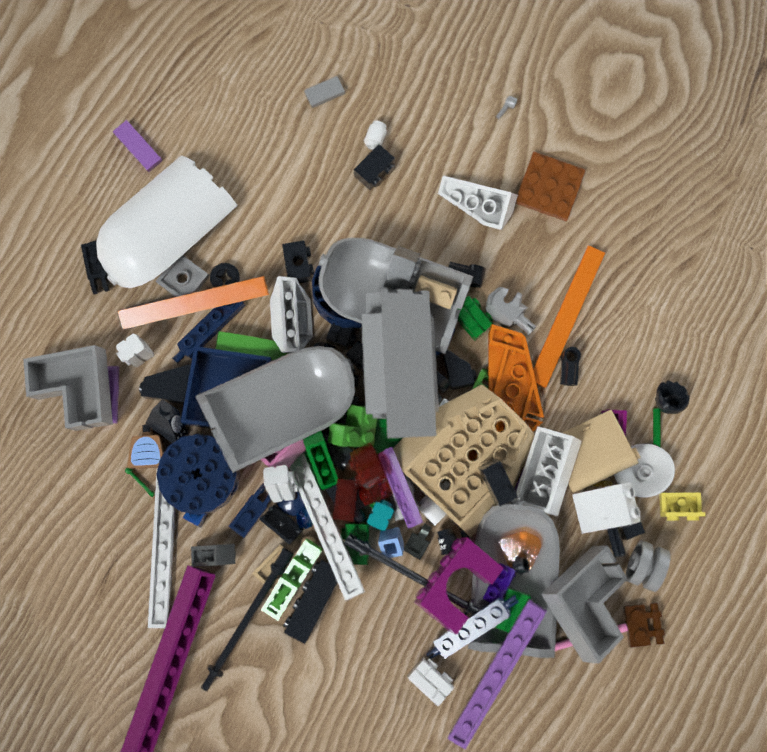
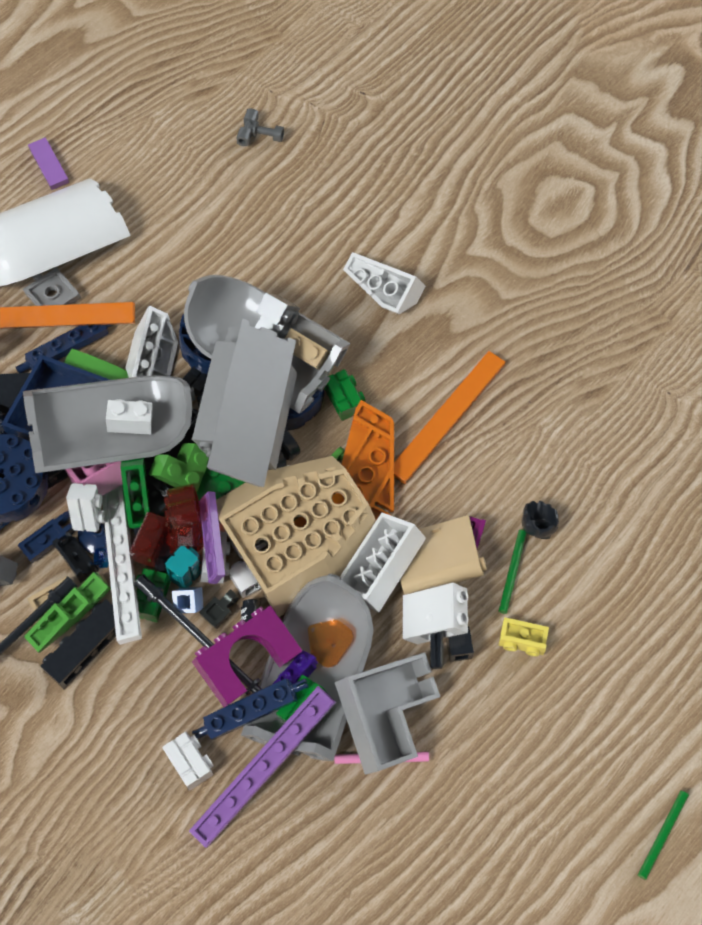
camera: 10 degrees right, 15 degrees down
(220, 270) = (95, 294): black gear -> none
(293, 252) = (173, 292): black brick -> none
(297, 394) = (129, 416): none -> white brick
(315, 67) = (252, 127): none -> dark grey bar
(324, 92) = (253, 152): light grey tile -> none
(374, 167) = (283, 230): black brick -> none
(375, 134) = (293, 201): white brick -> none
(458, 371) = (313, 442): black slope -> none
(474, 270) = (357, 353): black piece -> none
(497, 482) = (318, 551): black brick -> none
(508, 313) = (384, 395): light grey piece -> none
(510, 102) = (442, 199): light grey hand -> none
(521, 565) = (324, 655): black plate -> none
(550, 186) = (463, 287): dark orange plate -> none
(569, 369) = (436, 466): black piece -> none
(637, 625) = (441, 758): reddish brown plate -> none
(648, 566) = (463, 686): light grey wheel -> none
(651, 474) = (495, 590): white hat -> none

